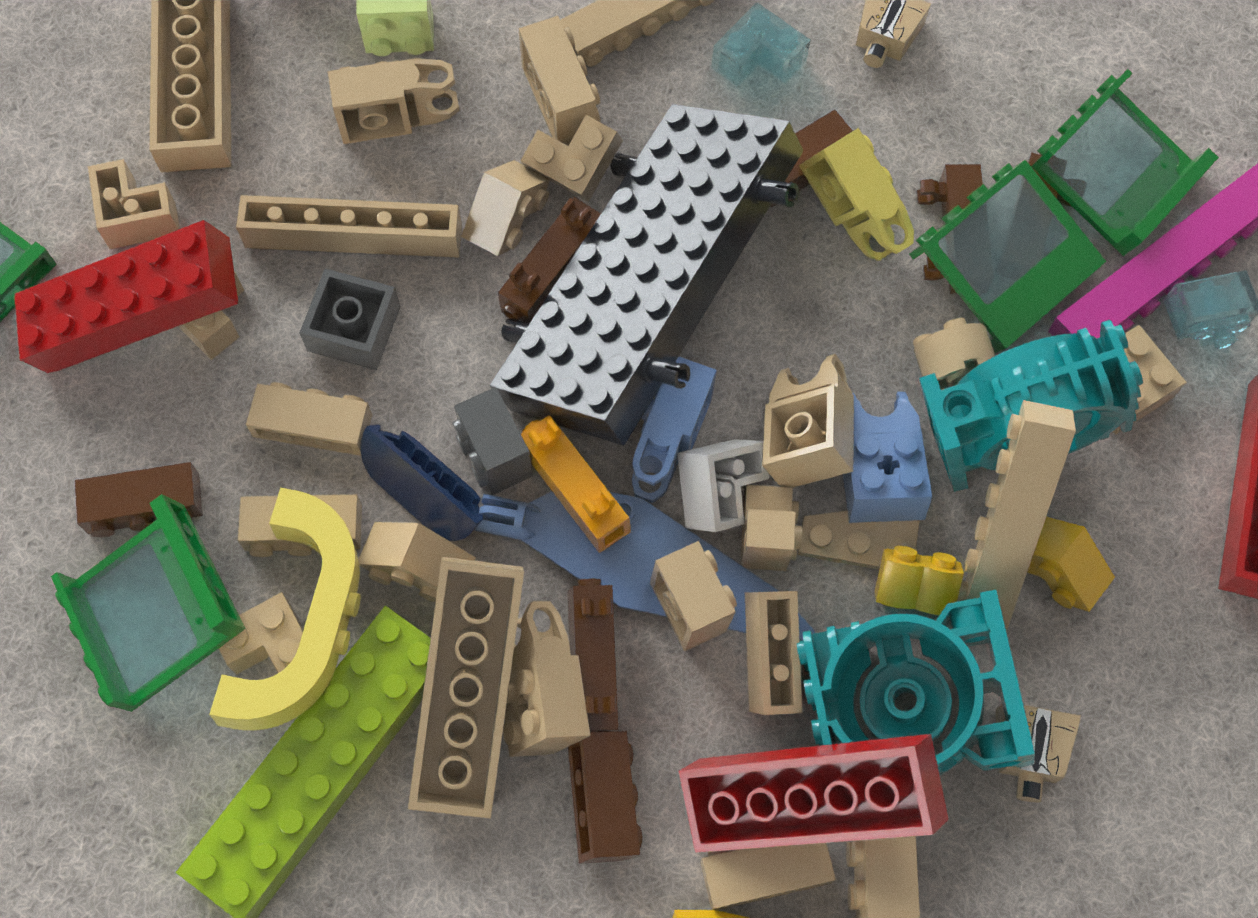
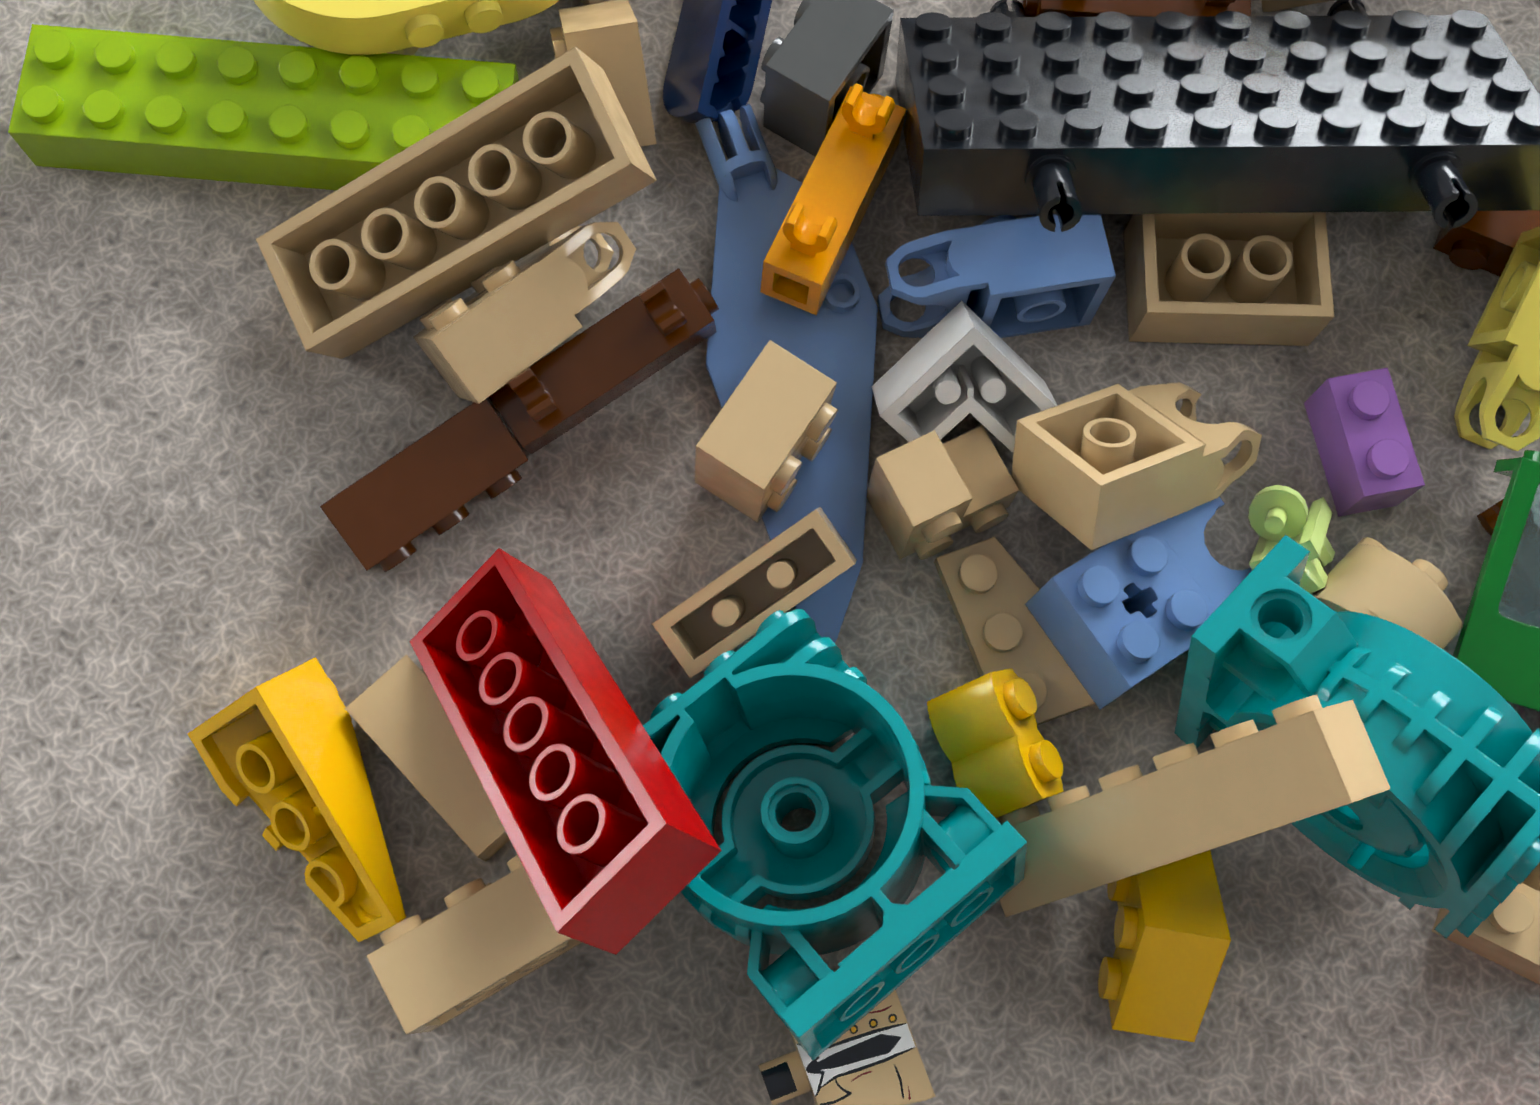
camera: 55 degrees right, 5 degrees up
(739, 317) = (1228, 278): none -> tan brick
(860, 308) = (1363, 442): none -> medium lavender brick
(893, 374) = (1284, 512): none -> yellowish green hips

